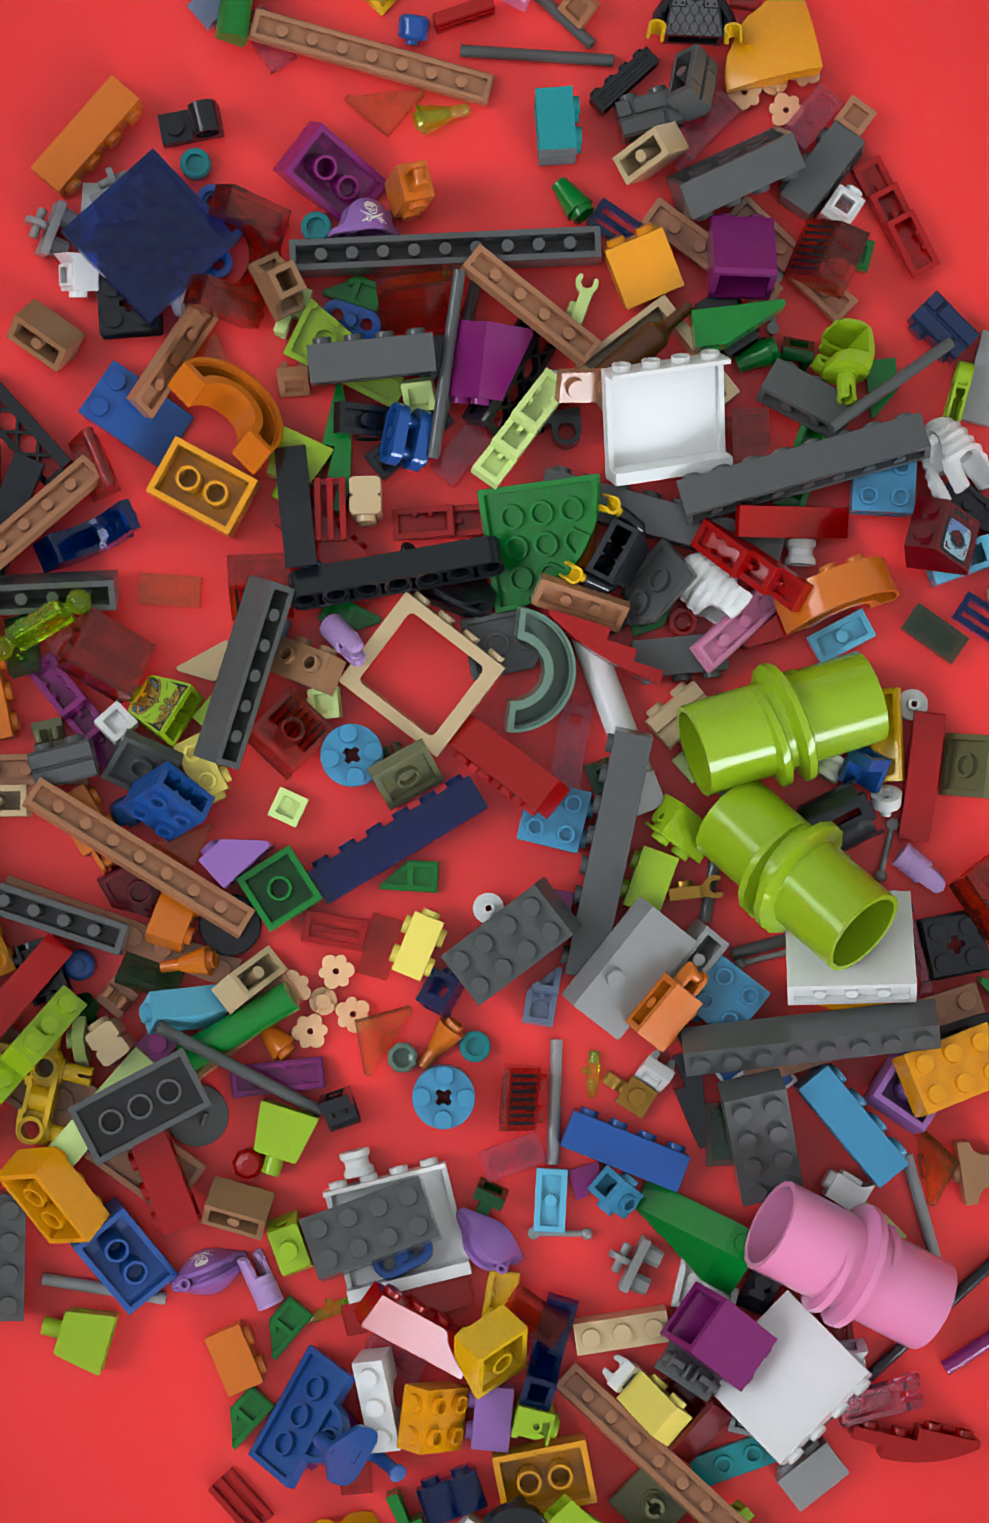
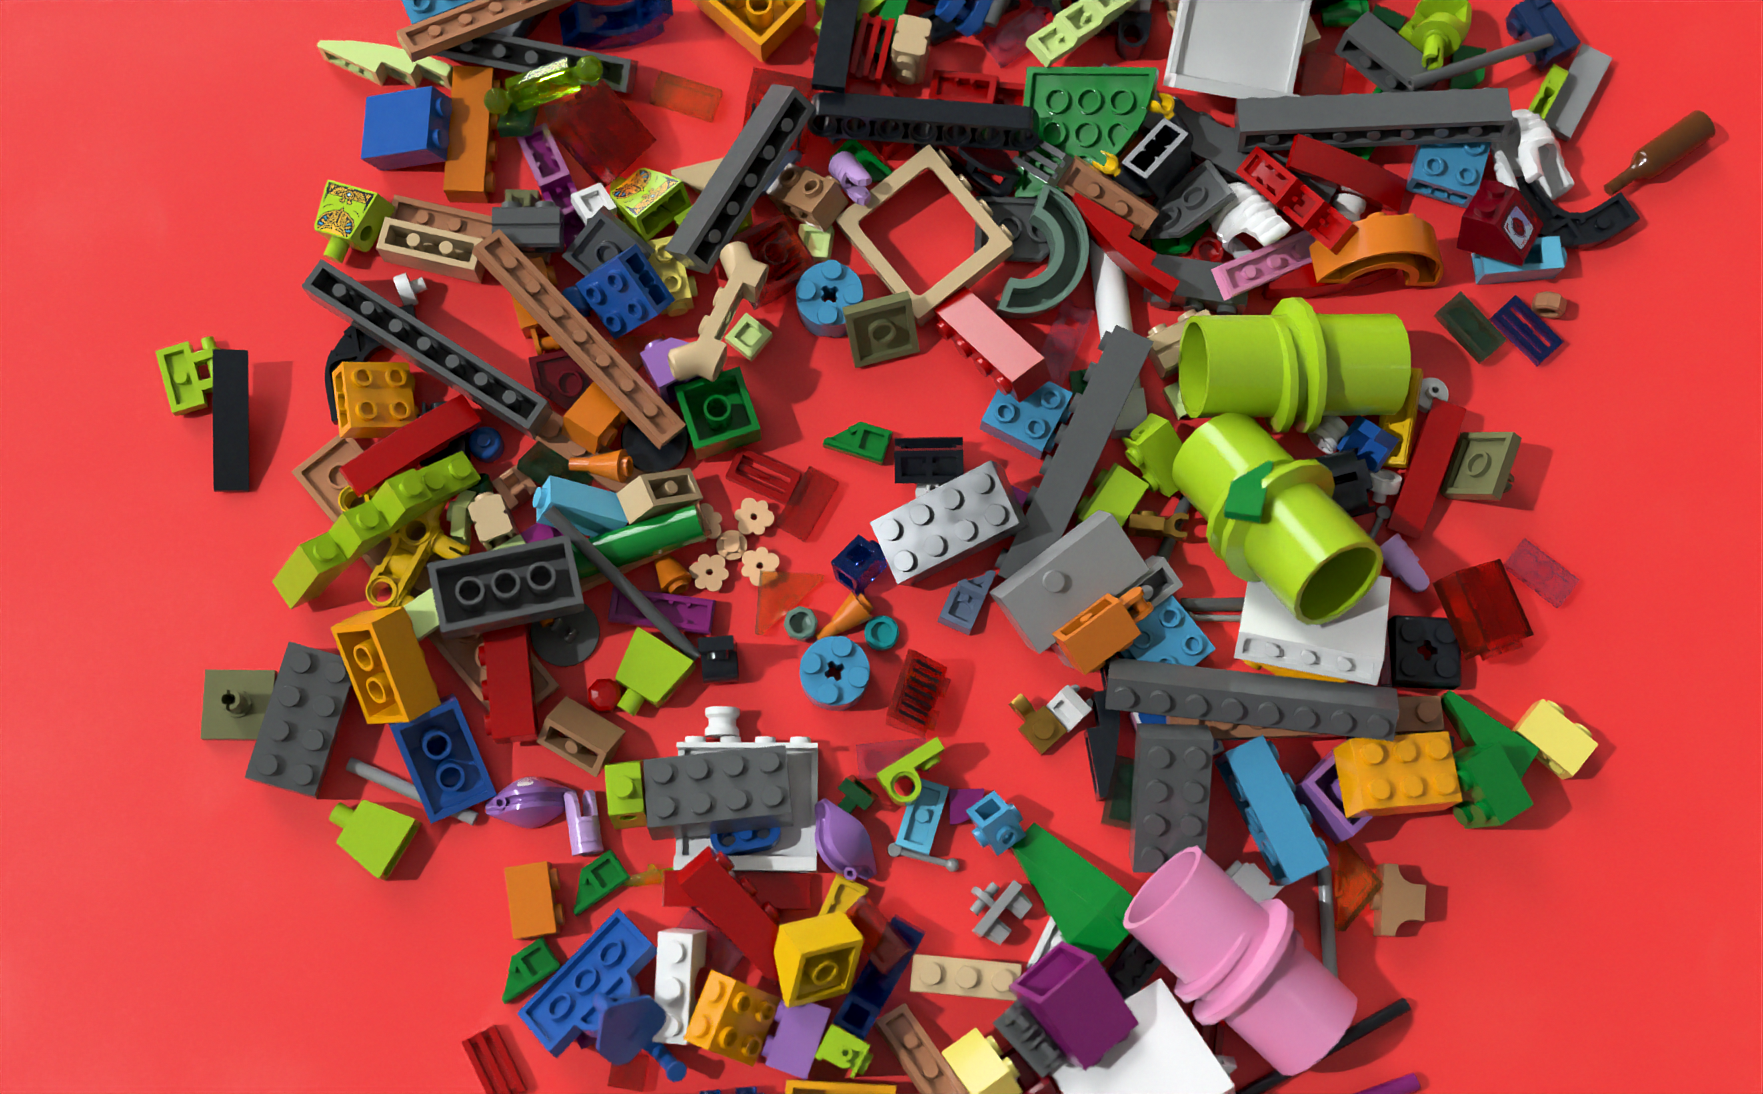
camera: 15 degrees right, 10 degrees down
(274, 769) = (709, 353): none -> tan plate
(398, 839) = (856, 396): clear blue brick -> none
(422, 934) = (853, 501): light yellow brick -> none
(478, 883) = (928, 459): none -> black hinge
(530, 594) = (1058, 169): none -> dark grey tile
(540, 1152) = (905, 768): none -> lime plate
(554, 1101) = (953, 709): light grey bar -> none
(592, 1072) = (1001, 692): helmet -> none
(623, 1376) = (953, 1029): white tile -> none
(625, 1149) = (1017, 781): blue brick -> none
(765, 876) = (1246, 496): none -> green tile
(841, 636) = (1379, 300): medium azure plate -> none

